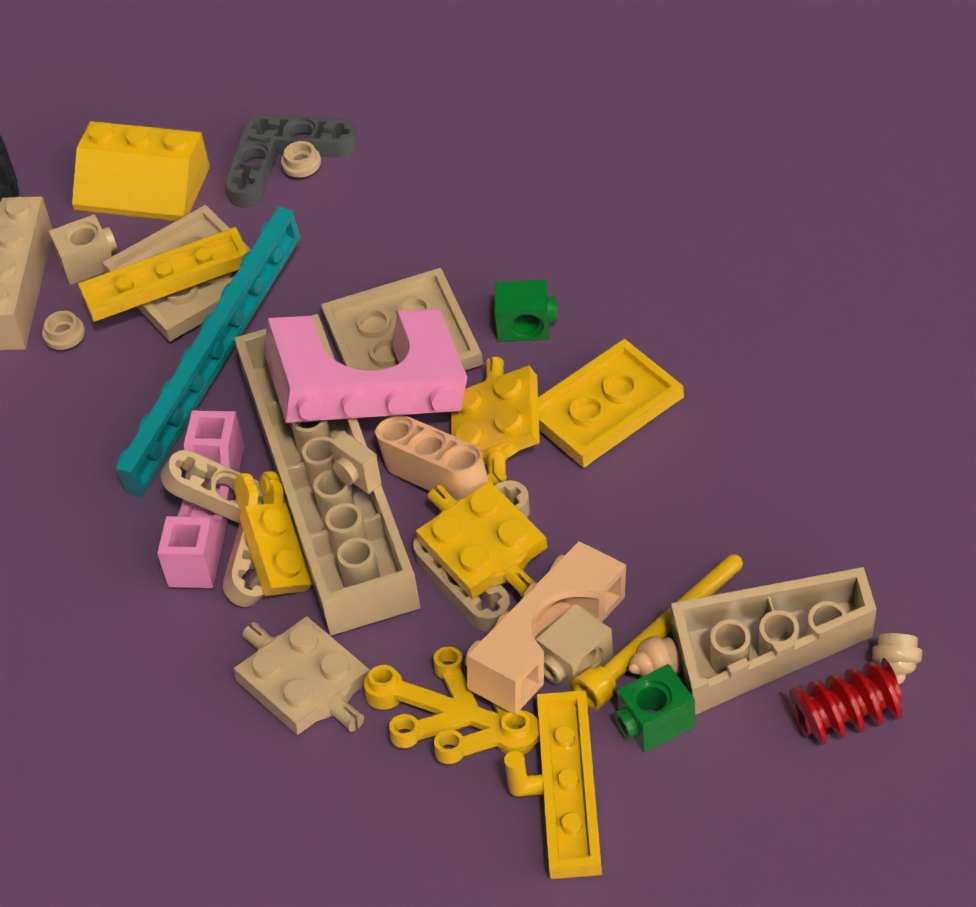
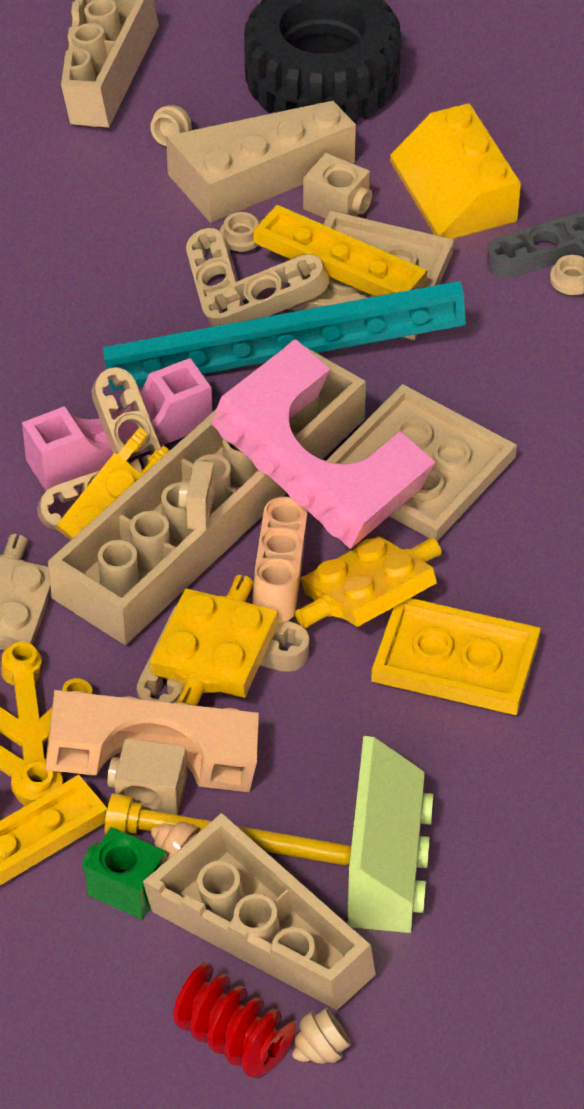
camera: 50 degrees right, 0 degrees up
(124, 365) = (232, 291): none -> tan beam
(523, 310) = (516, 534): green brick -> none
(748, 523) = (388, 841): none -> yellowish green slope

